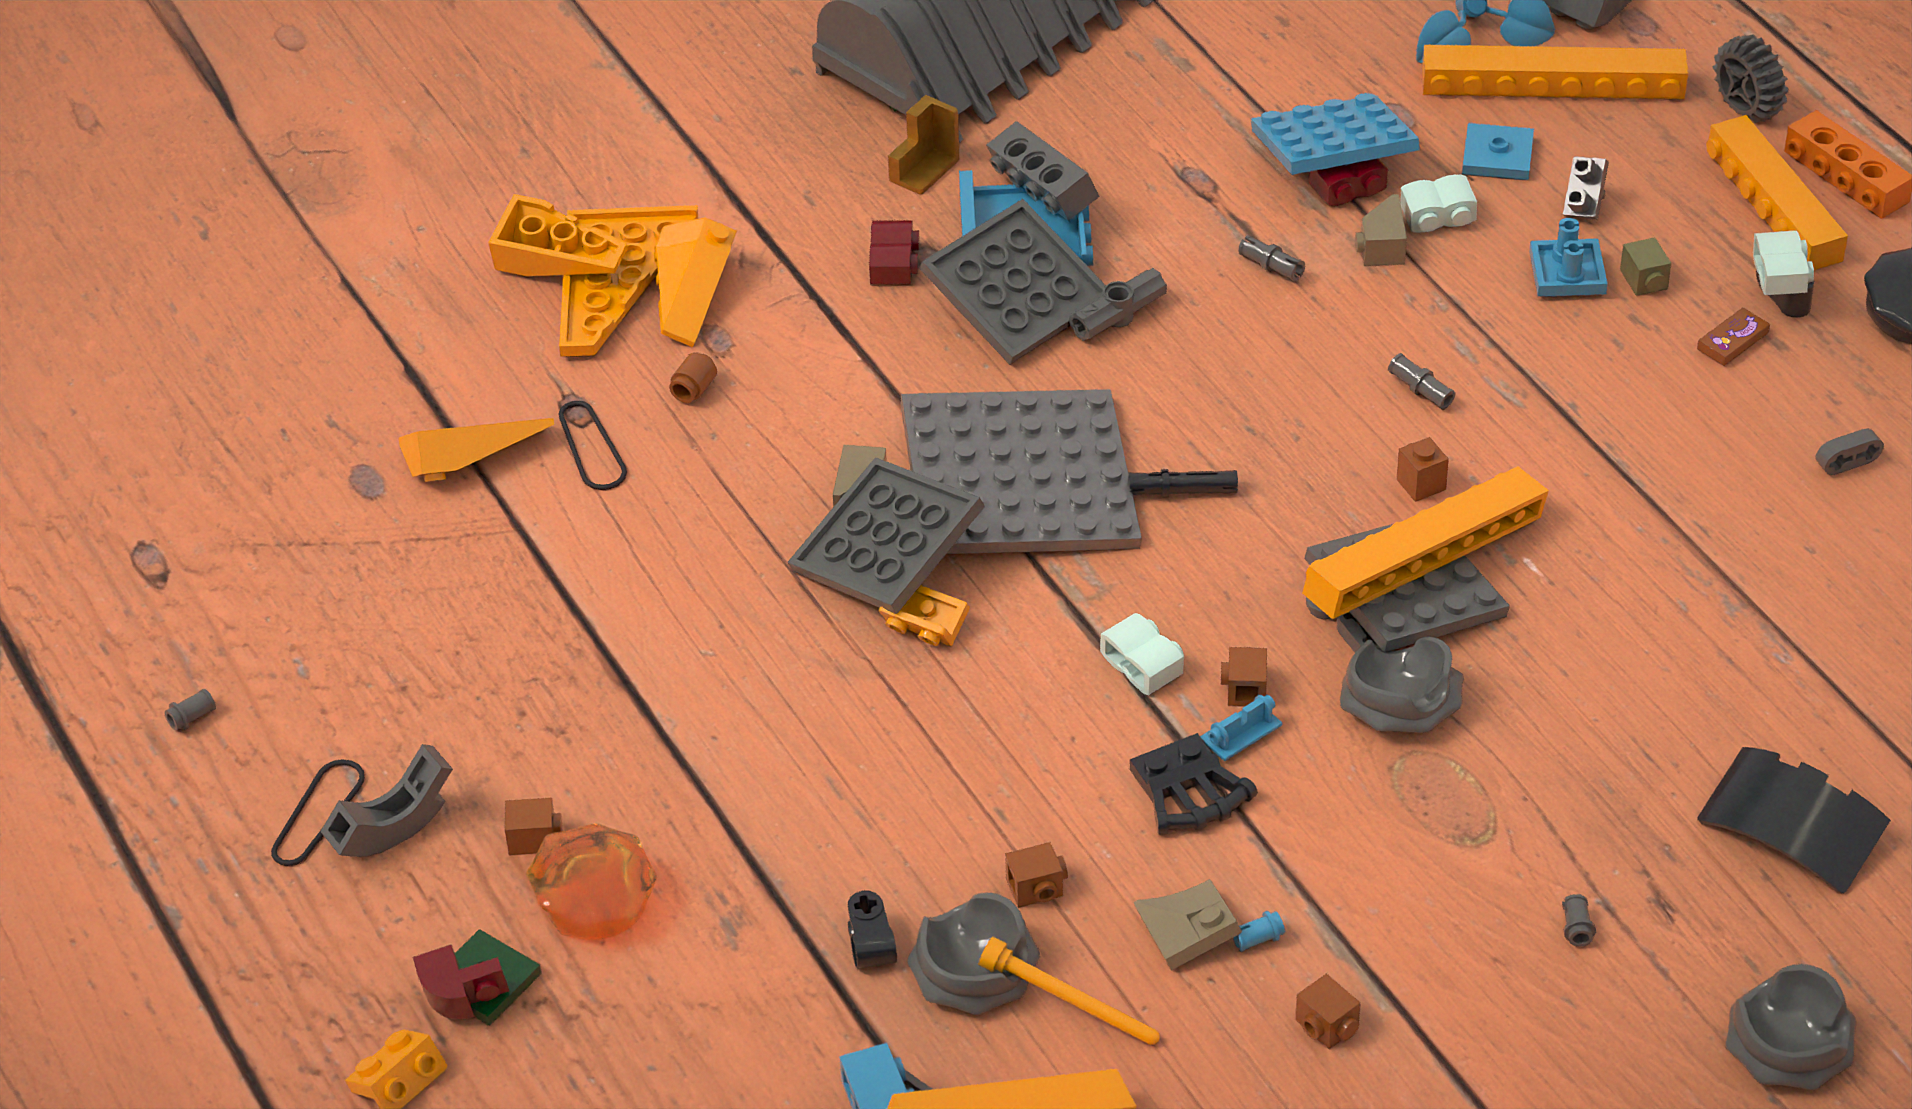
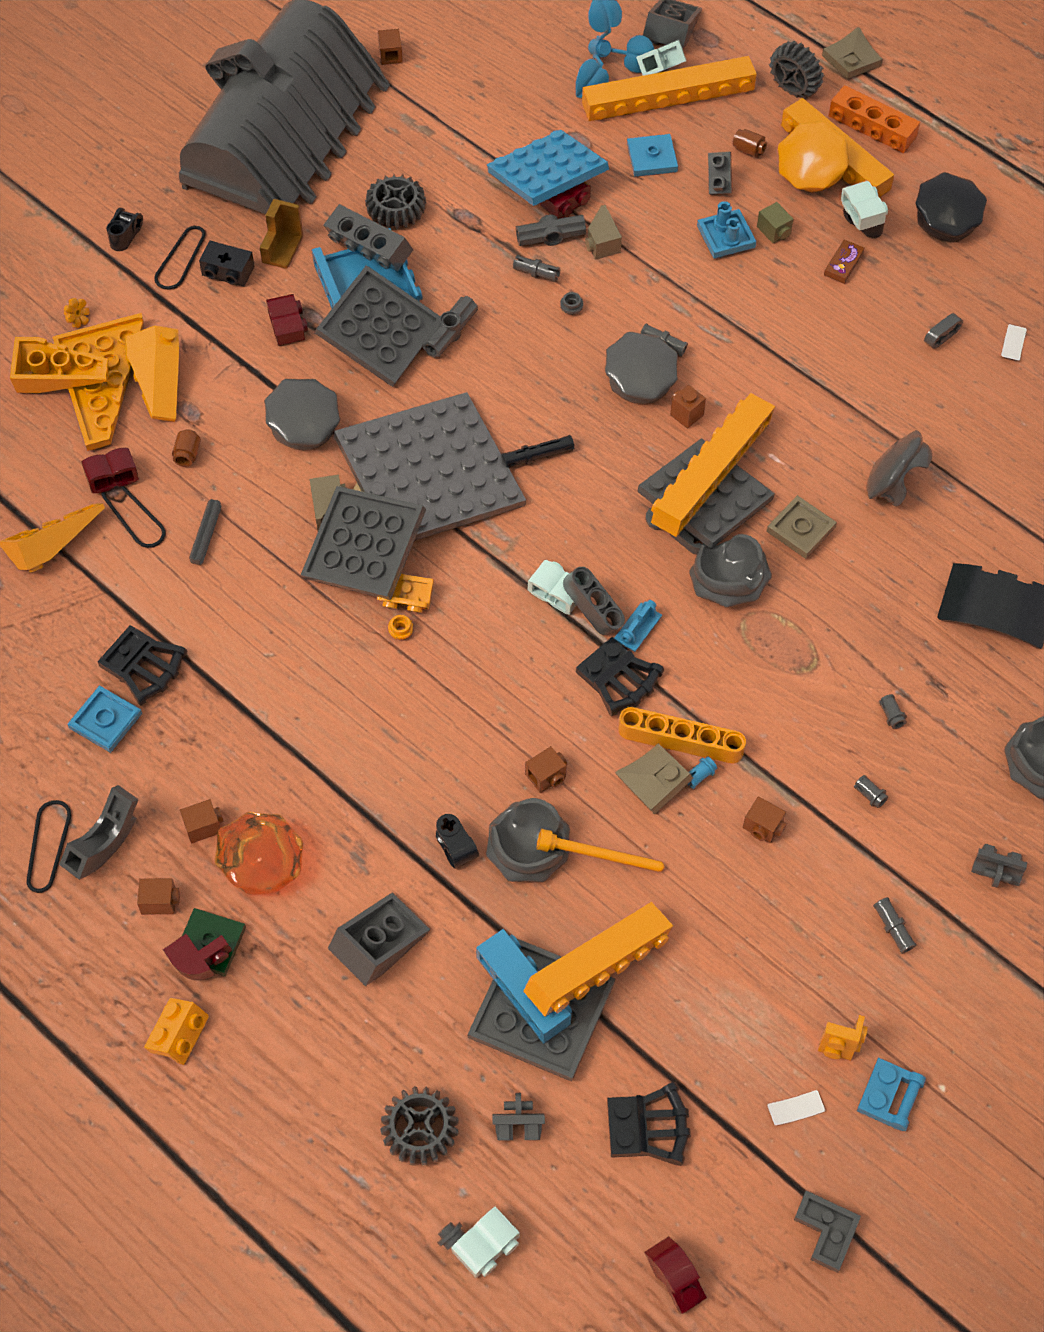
camera: 20 degrees left, 15 degrees up
(435, 902) = (157, 896): none -> dark orange brick
(453, 676) = (104, 719): none -> dark azure plate
(519, 604) = (128, 654): none -> black plate
(578, 383) = (110, 470): none -> dark red brick
(611, 188) = (76, 312): none -> light orange plant
(679, 484) = (205, 532): none -> dark grey axle
(712, 1025) = (377, 938): none -> dark grey slope
(715, 103) = (123, 229): none -> black piece
(770, 145) = (171, 253): none -> black piece
(838, 169) = (226, 263): none -> black brick
(866, 367) = (302, 413): none -> dark grey piece
(901, 656) = (400, 621): none -> light orange plate
(1103, 138) = (396, 195): none -> dark grey gear
(1181, 693) = (582, 596): none -> dark grey beam
(1245, 674) = (629, 587): dark orange brick -> none
(1249, 877) = (693, 730): none -> light orange beam
(1305, 310) = (571, 303): none -> dark grey plate
(1310, 214) = (550, 230): none -> dark grey piece
(1370, 407) = (641, 367): none -> dark grey piece
(1438, 203) = (630, 203): light aqua brick -> none
(1509, 1022) = (874, 794): none -> dark grey pin
(1533, 656) = (801, 526): none -> dark tan plate
(1554, 30) = (661, 58): none -> light aqua brick
(1648, 160) = (749, 142): none -> dark orange brick
(1706, 595) = (890, 469): none -> dark grey piece
(1731, 191) = (813, 156): none -> light orange piece
(1850, 79) = (852, 55): none -> dark tan plate

